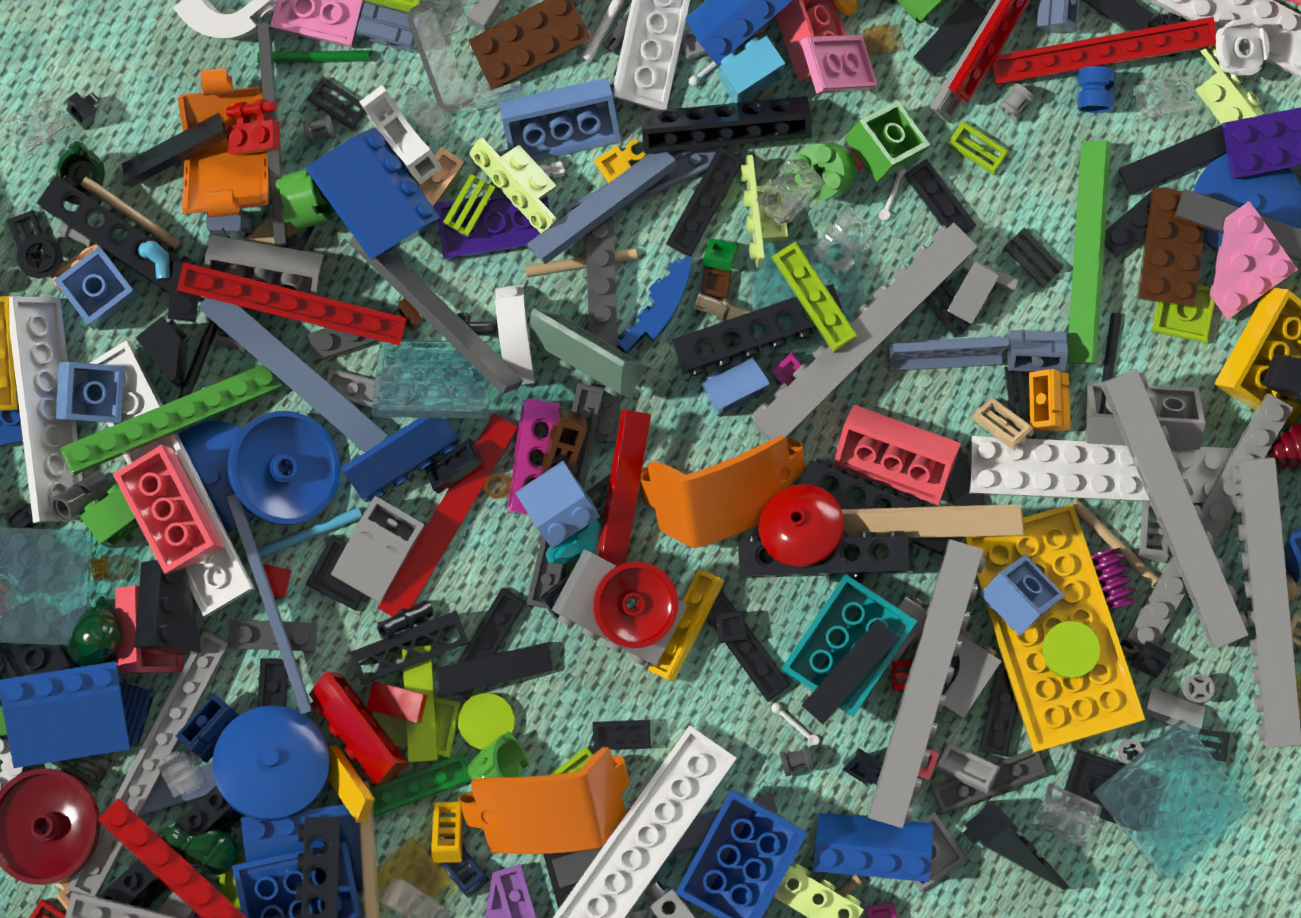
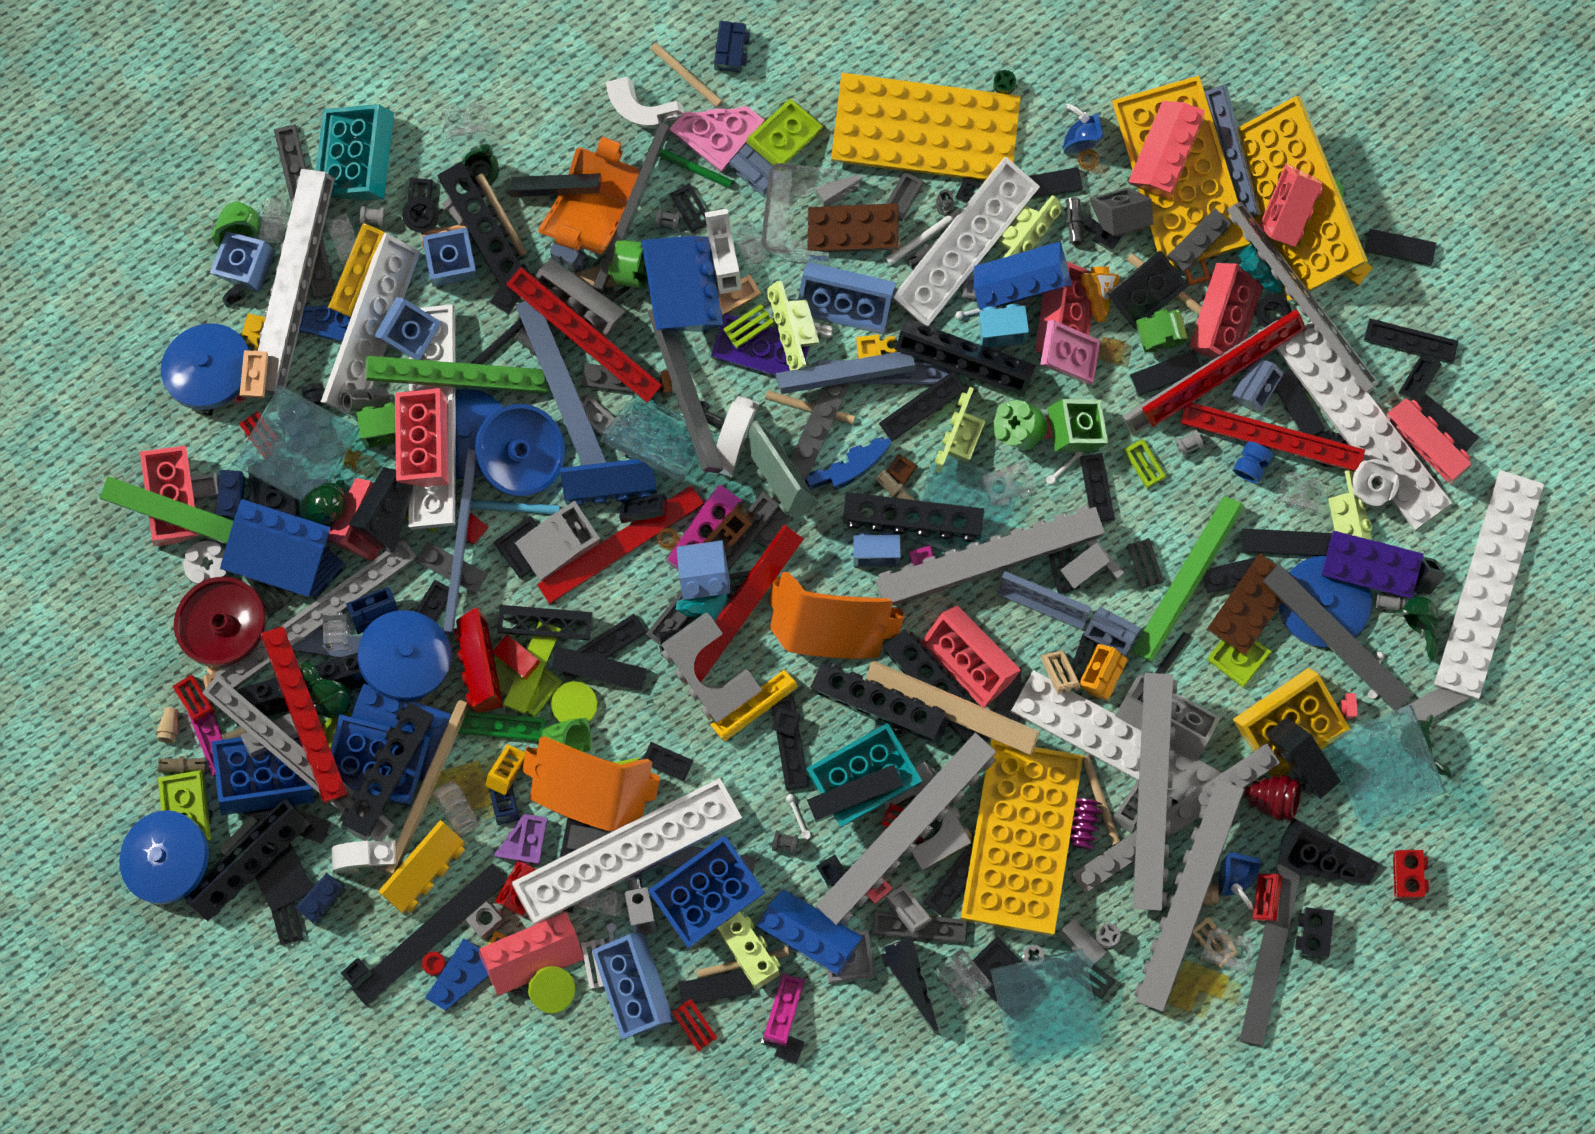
camera: 30 degrees right, 5 degrees down
(83, 109) = (504, 125): black tile -> none
(159, 256) = (505, 254): medium azure arm -> none
(167, 348) = (479, 324): black slope -> none
(253, 136) = (618, 202): red plate -> none
(349, 785) = (451, 698): yellow tile -> none
(405, 619) = (552, 601): black pin -> none
(653, 609) = (739, 669): red dish -> none
(720, 254) = (914, 449): green plate -> none
(794, 196) = (988, 430): clear brick -> none
(809, 539) = (877, 681): red dish -> none
(814, 297) = (965, 511): lime tile -> none
(1021, 595) = (1009, 800): medium blue slope -> none
(1070, 649) = (1025, 857): lime tile -> none
(1146, 658) = (1081, 894): black plate -> none
(1247, 262) = (1300, 641): bright pink plate -> none

